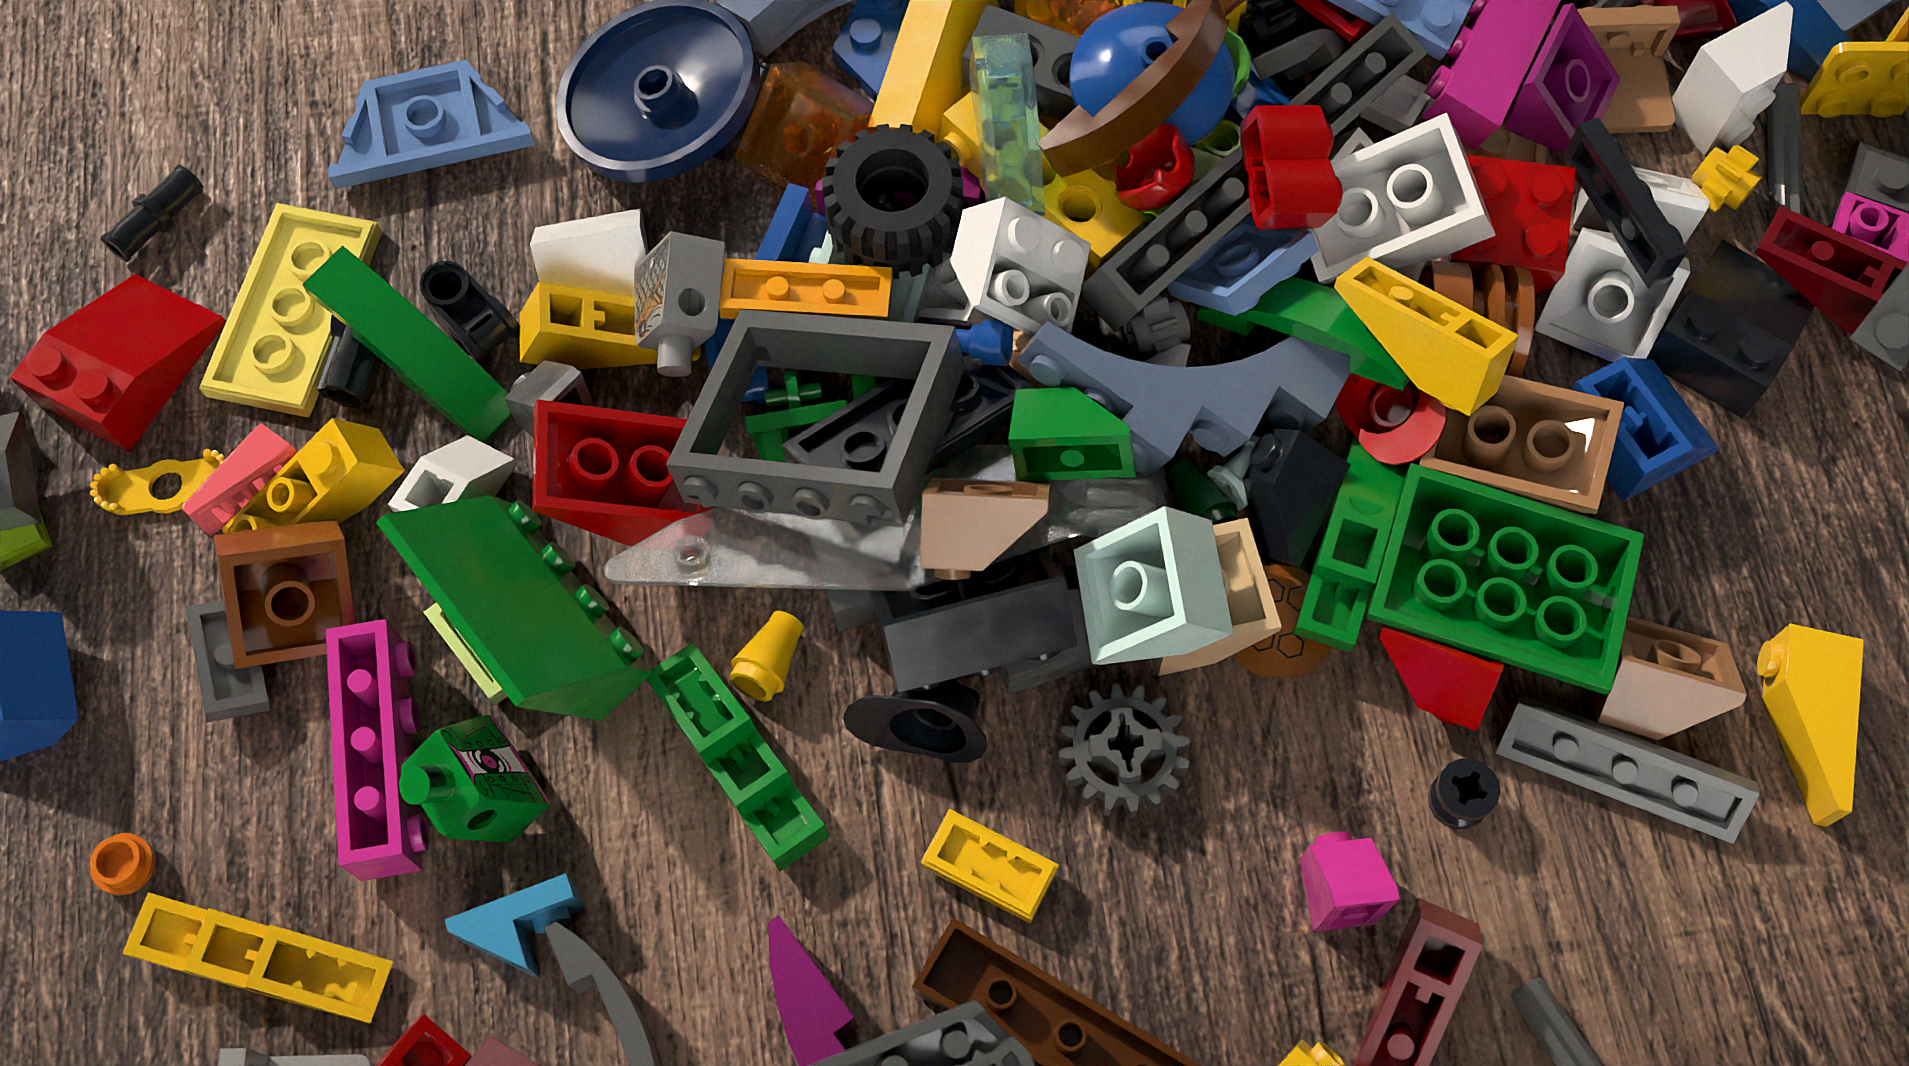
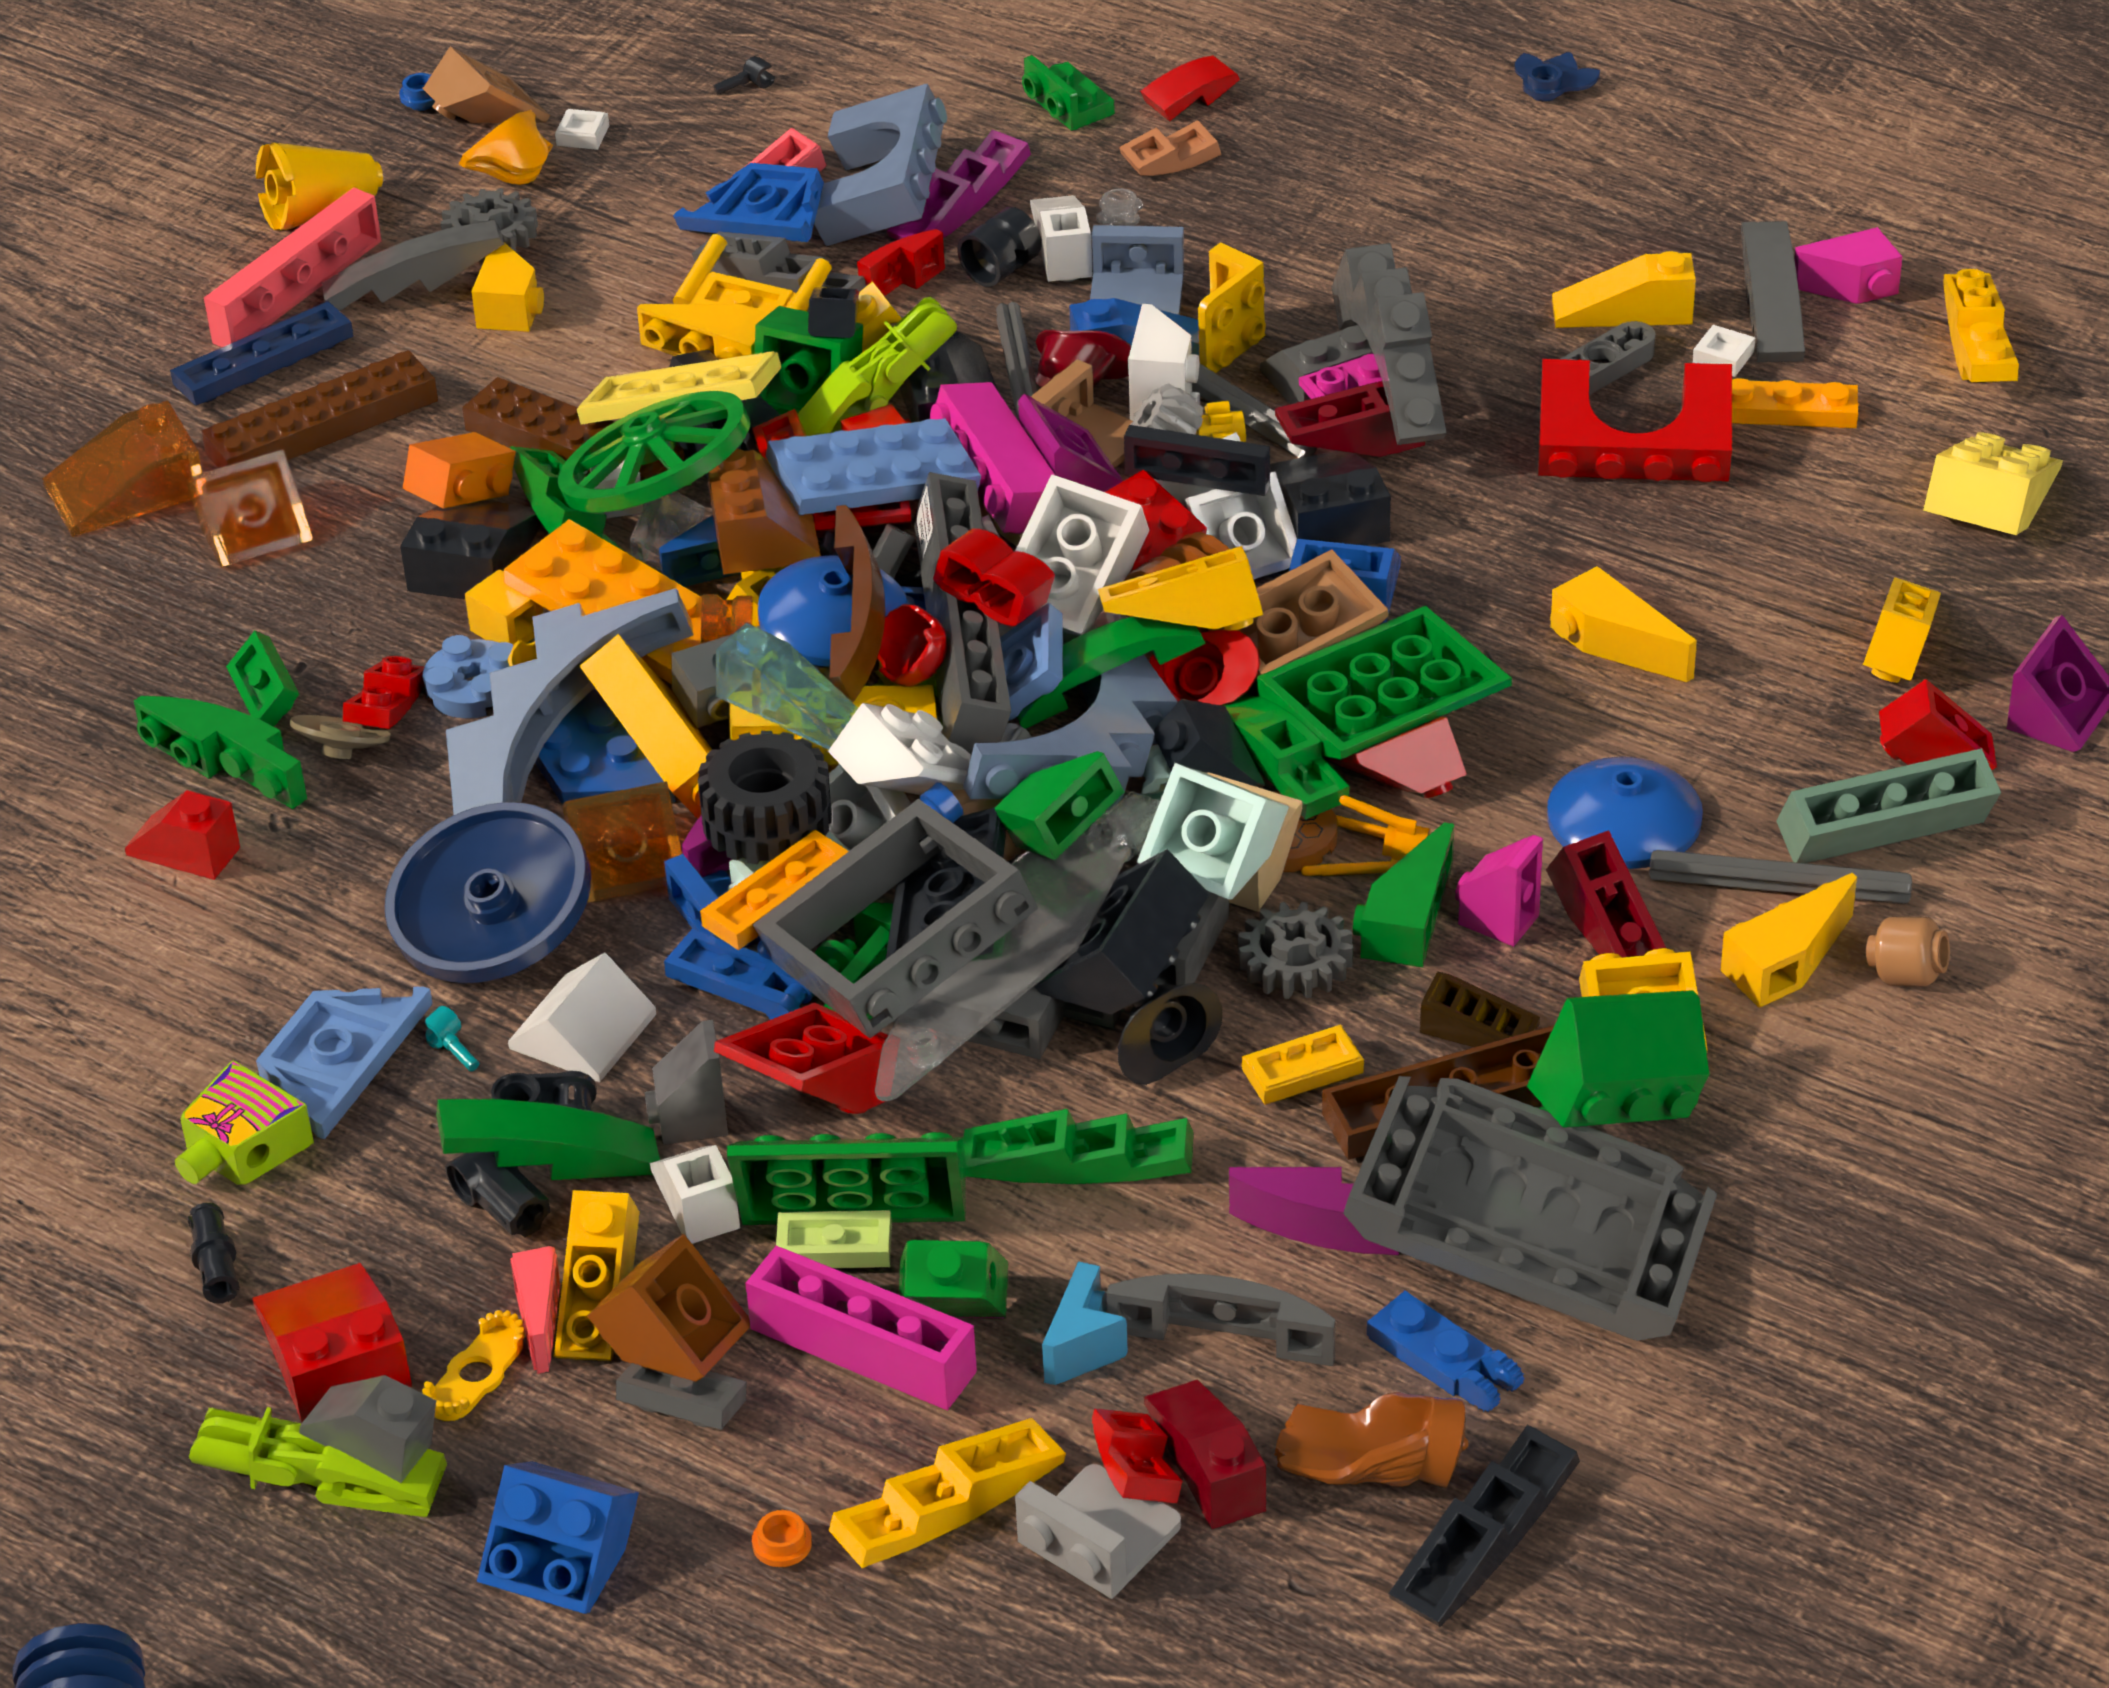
camera: 50 degrees left, 25 degrees down
(276, 331) = (405, 1219): light yellow tile -> none
(288, 125) = (241, 1128): none -> lime torso
(506, 172) = (441, 1032): none -> teal hand
(581, 329) = (638, 1037): yellow slope -> none
(677, 299) = (695, 961): light grey torso -> none
(766, 659) = (1023, 1090): yellow cone -> none
(975, 521) = (1077, 872): medium nougat slope -> none
(1162, 925) = (1452, 999): none -> dark brown slope
(1266, 802) = (1406, 902): none -> green slope
(1347, 737) = (1398, 837): none -> light orange plant
(1453, 803) = (1500, 812): black wheel -> none
(1549, 925) = (1634, 800): none -> blue dish
(1627, 768) = (1561, 729): dark grey plate -> none
(1668, 681) = (1537, 675): medium nougat slope -> none
(1676, 134) = (1170, 410): none -> light grey gear

